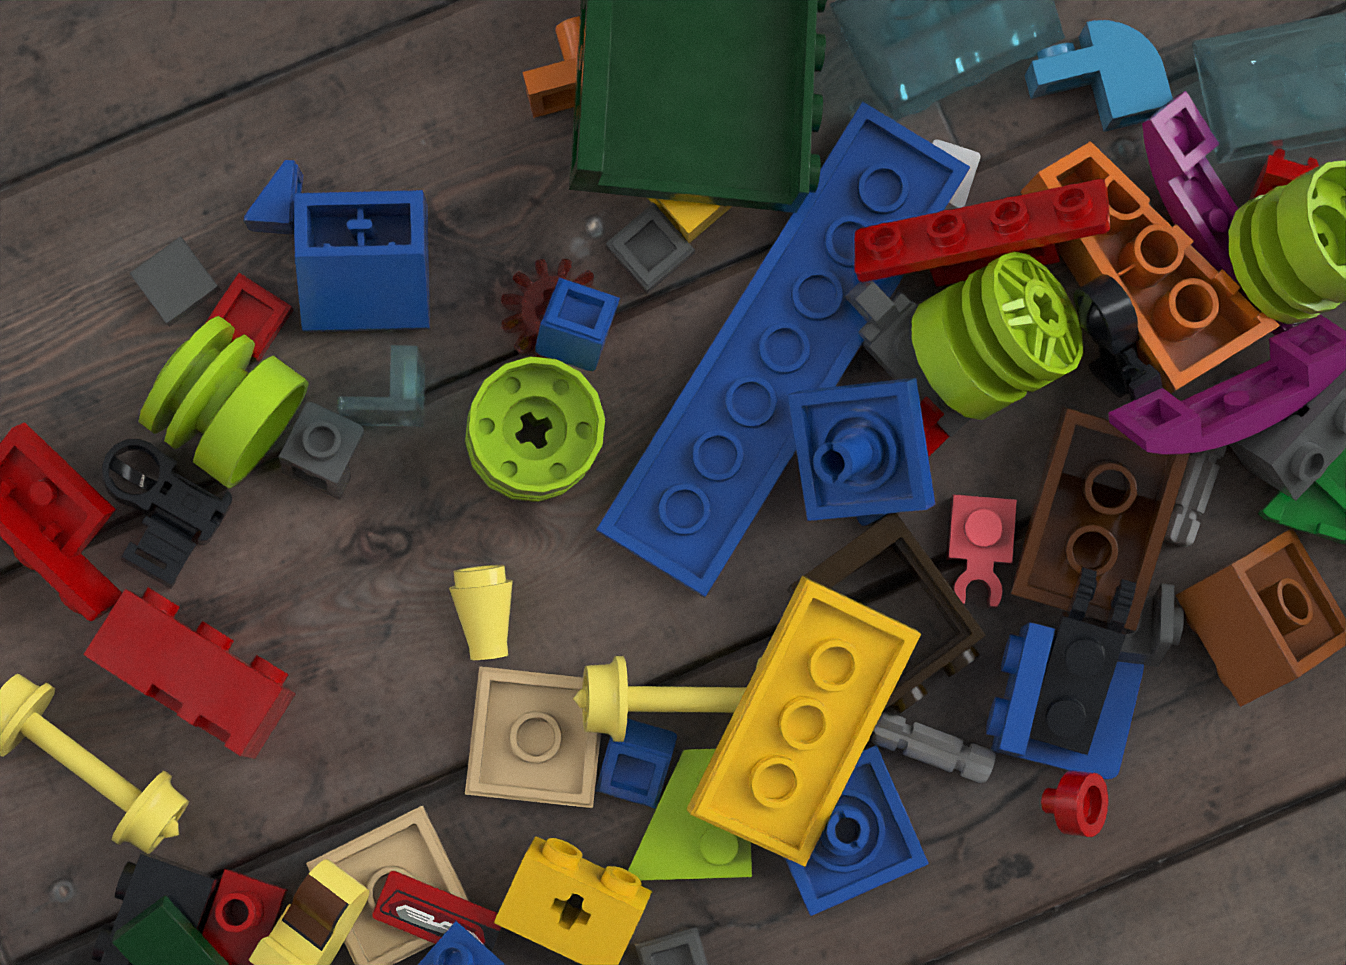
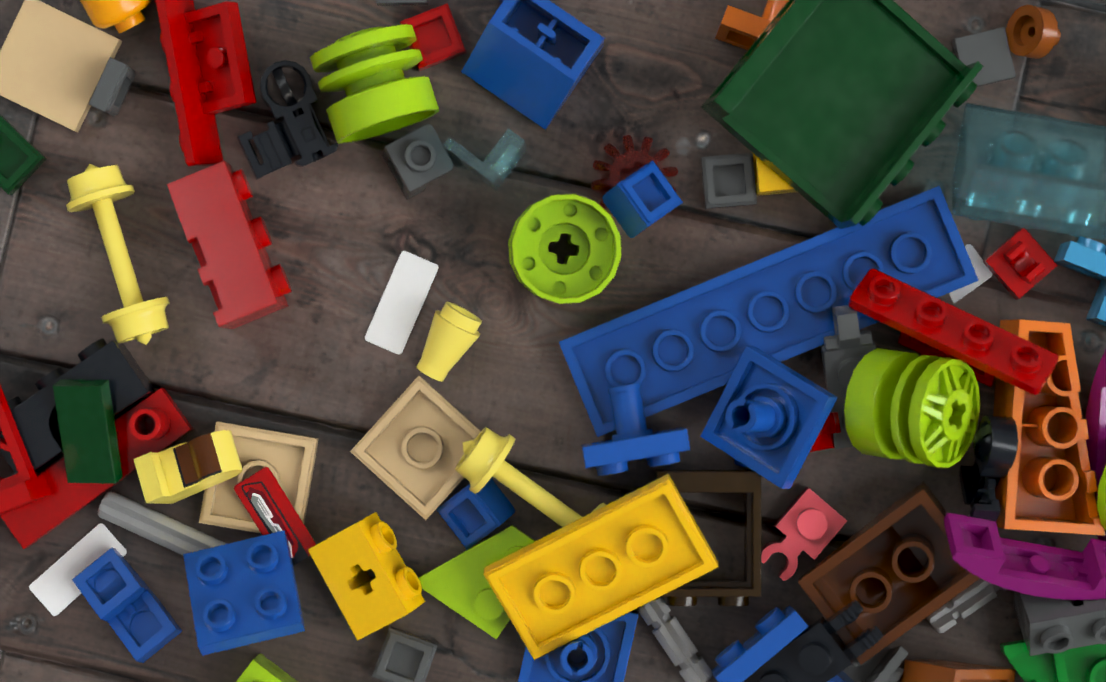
camera: 50 degrees right, 5 degrees up
(408, 607) = (401, 302): none -> white sticker
(741, 568) = (633, 438): none -> blue plate
(998, 122) = (1019, 263): none -> red tile

